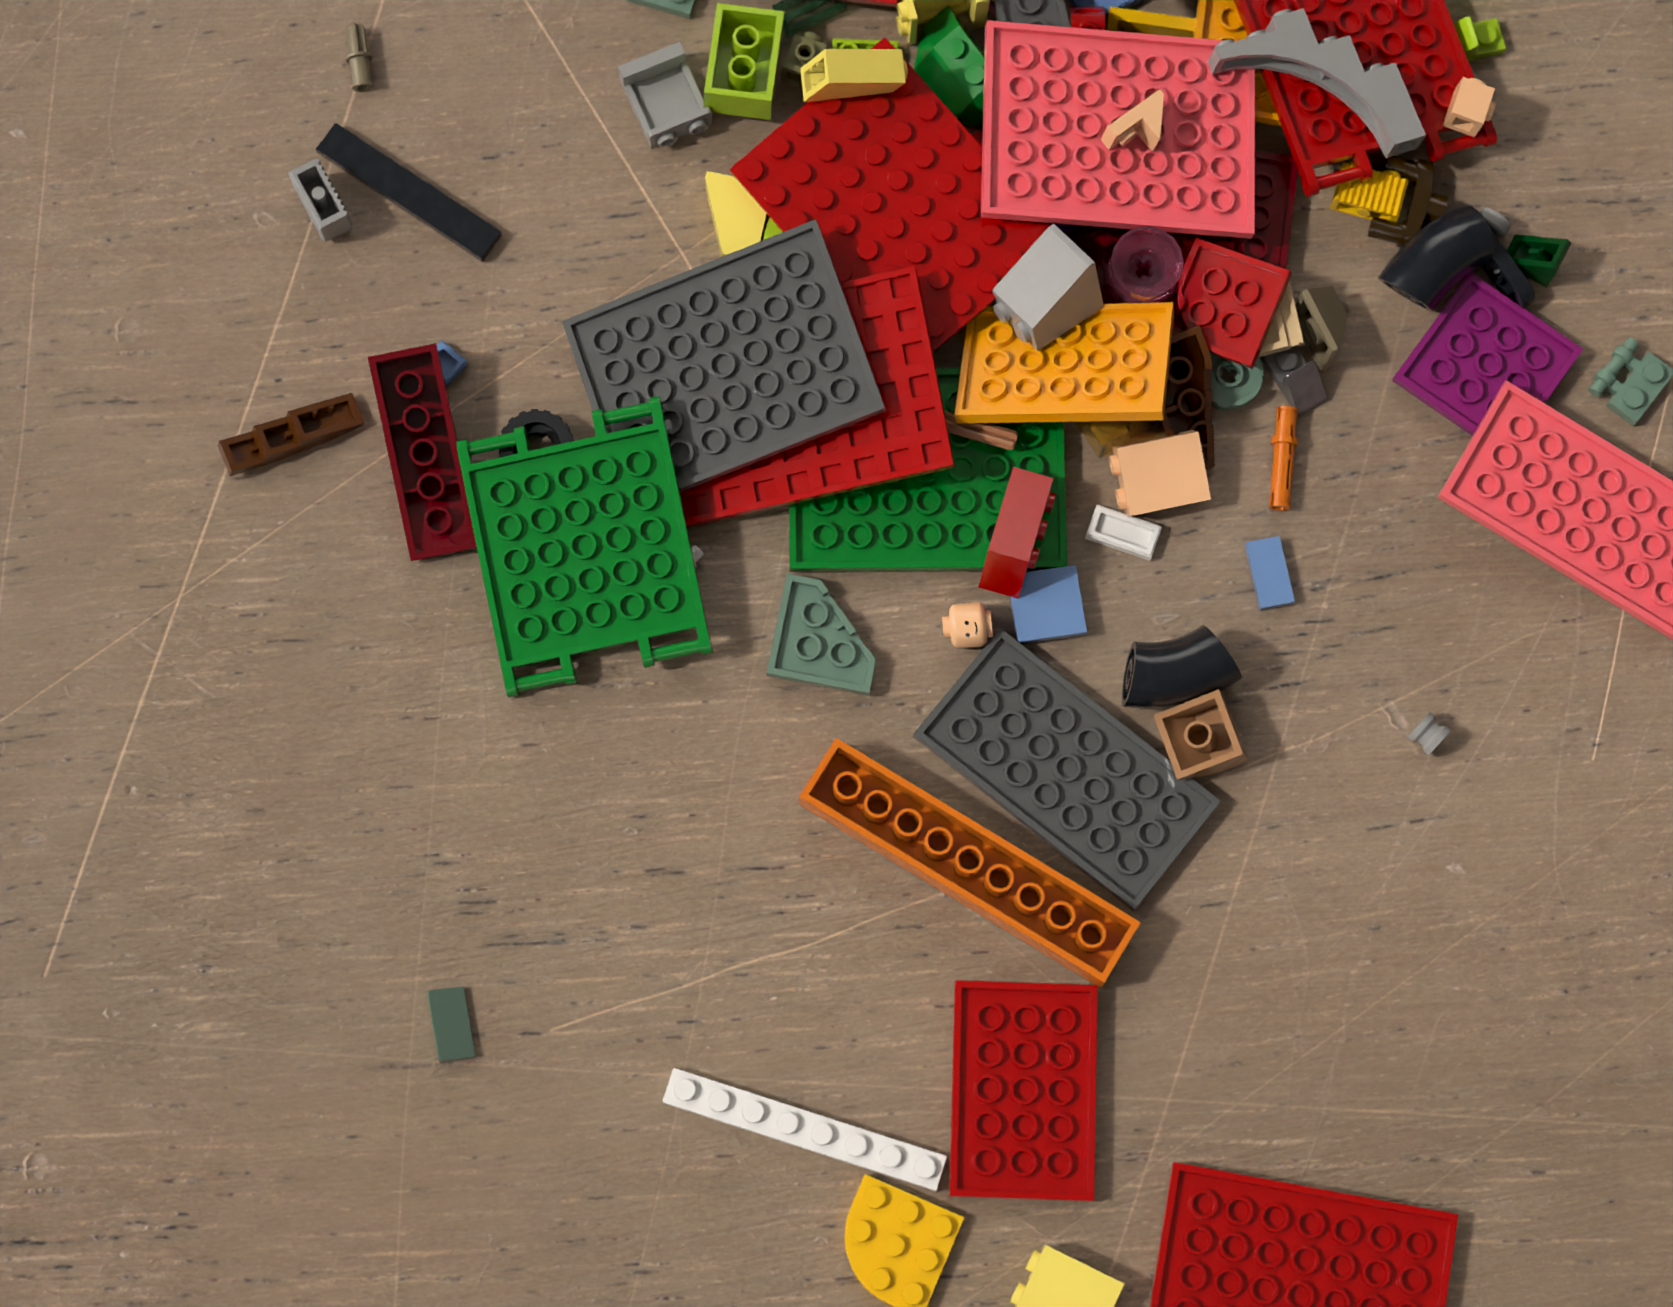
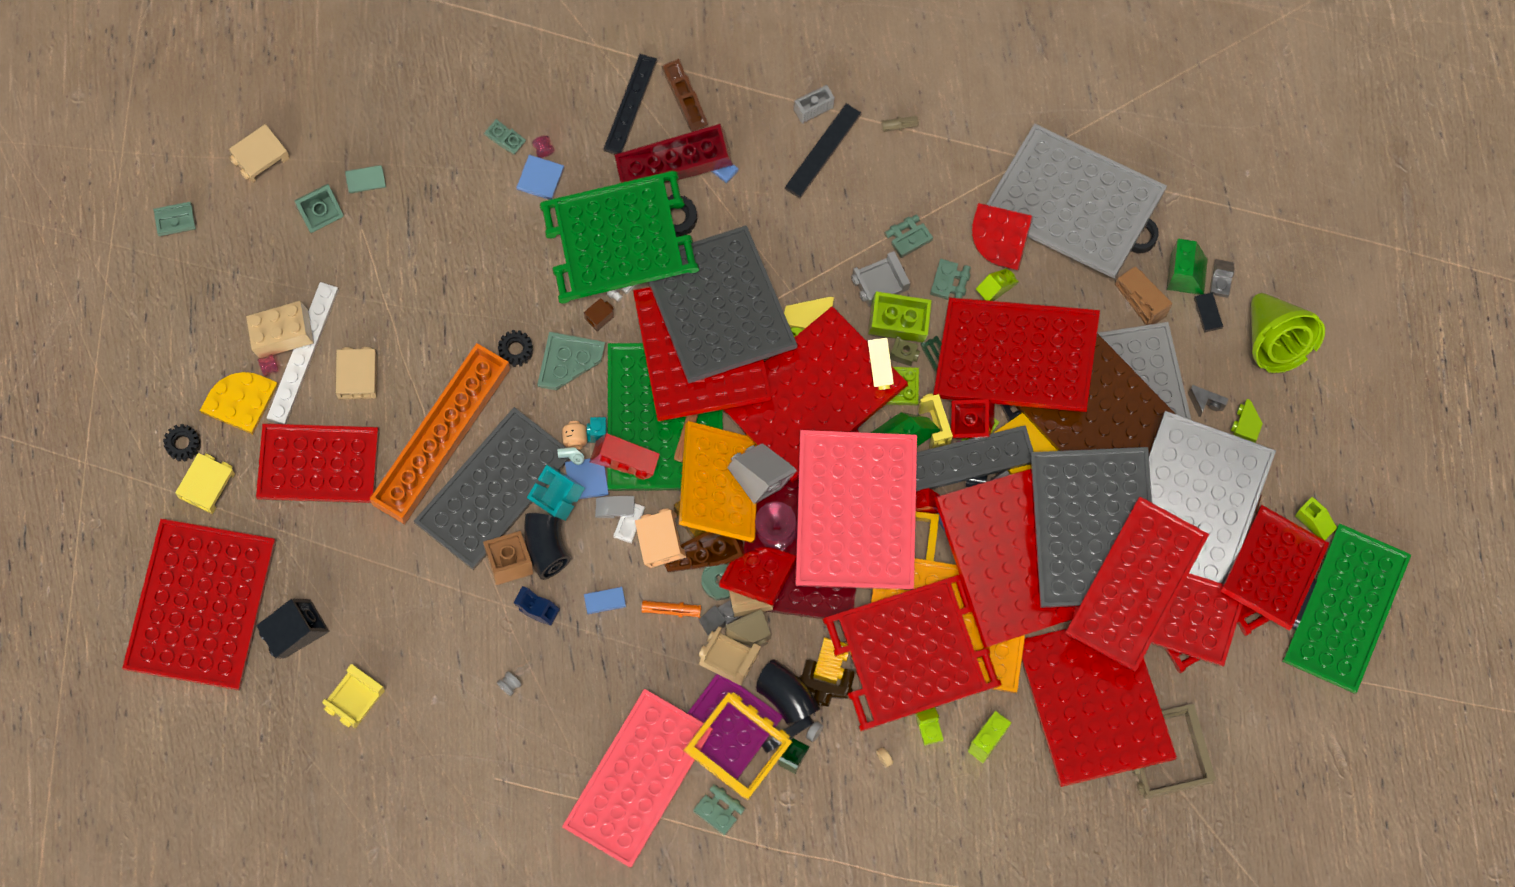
camera: 90 degrees right, 5 degrees down
(305, 534) = (630, 104): none -> black tile
(367, 764) = (504, 137): none -> sand green slope
(391, 690) = (543, 146): none -> clear pink wheel
(394, 1232) = (257, 152): none -> tan panel
(451, 697) = (540, 177): none -> medium blue tile
(514, 1108) = (318, 208): none -> sand green slope
(590, 43) = (911, 240): none -> sand green plate
(731, 584) = (599, 314): none -> reddish brown brick
(766, 1168) = (279, 329): none -> tan brick
(796, 714) = (511, 338): none -> black tyre
(832, 1191) = (268, 365): none -> clear pink wheel
(847, 1024) = (356, 373): none -> tan brick
(955, 585) = (596, 429): none -> teal brick
(1006, 625) = (572, 453): none -> light aqua arm
(1085, 648) = (560, 494): none -> teal piece
(1098, 555) = (615, 506): none -> light grey slope
(1142, 120) = (860, 519): light nougat slope -> none
(1291, 685) = (536, 607): none -> dark blue brick
(1334, 65) = (908, 606): light grey arch -> none
(1343, 1121) = (292, 627): none -> black slope
(1371, 357) = (728, 656): none -> tan panel
(1463, 1008) = (353, 697): none -> light yellow panel
(1470, 106) = (878, 710): light nougat brick -> none
(1532, 111) = (884, 757): none -> tan tile
(1571, 294) = (765, 724): none -> yellow window

